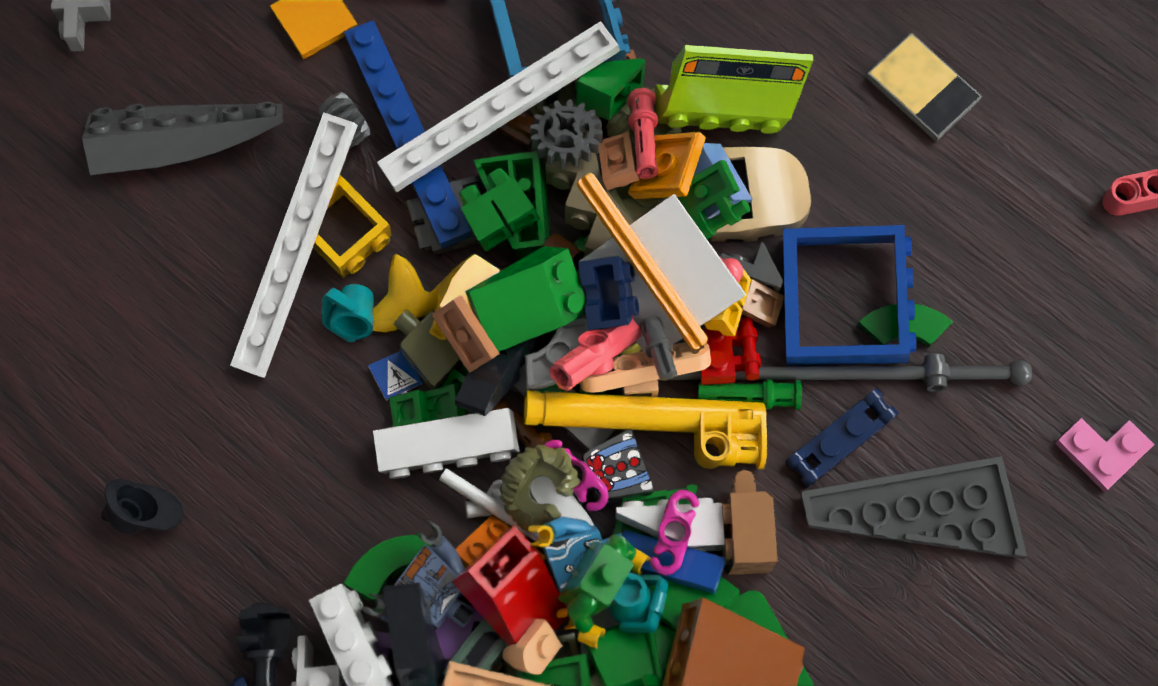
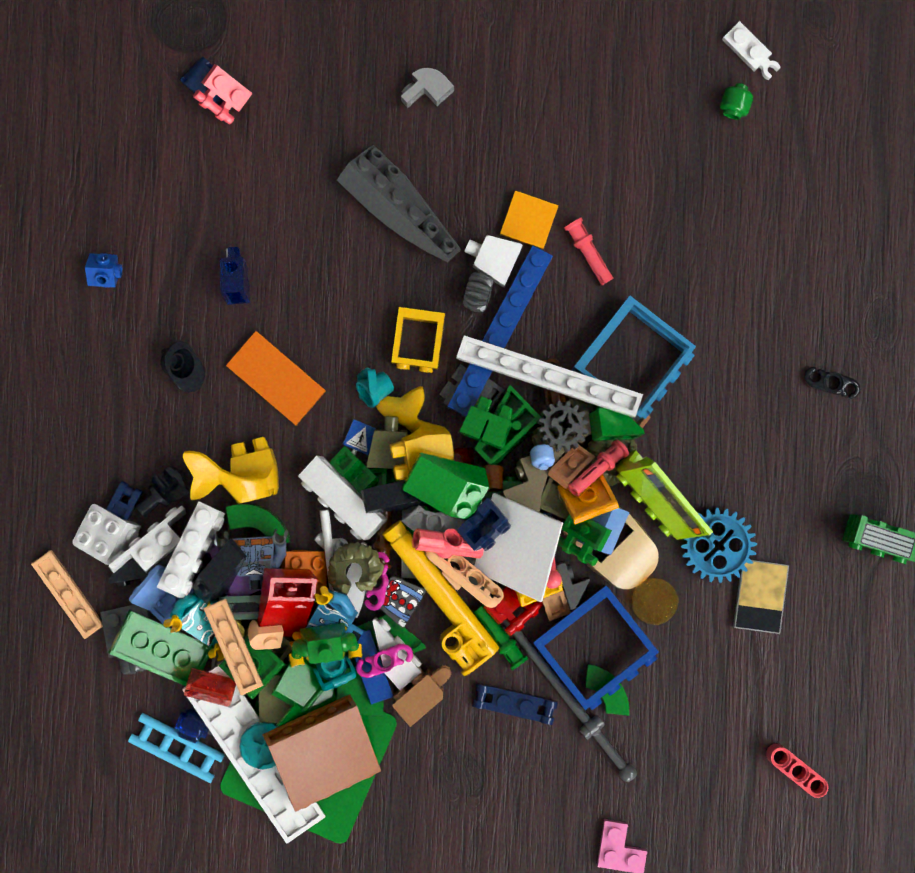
camera: 50 degrees right, 15 degrees up
(96, 368) = (234, 278): none -> clear blue torso
(247, 416) = (276, 378): none -> orange tile
(294, 245) = (384, 327): white plate -> none
(321, 74) = (494, 257): none -> white torso
(331, 528) = (250, 478): none -> yellow hips
(465, 333) = (399, 469): nougat plate -> none
(577, 170) = (542, 456): none -> light blue piece
(642, 261) = (515, 530): light orange axle -> none
(658, 347) = (477, 575): dark grey axle -> none
(842, 198) = (654, 601): none -> clear yellow tile
(860, 81) = (734, 559): none -> dark azure gear
(943, 506) = (517, 785): dark grey wing -> none

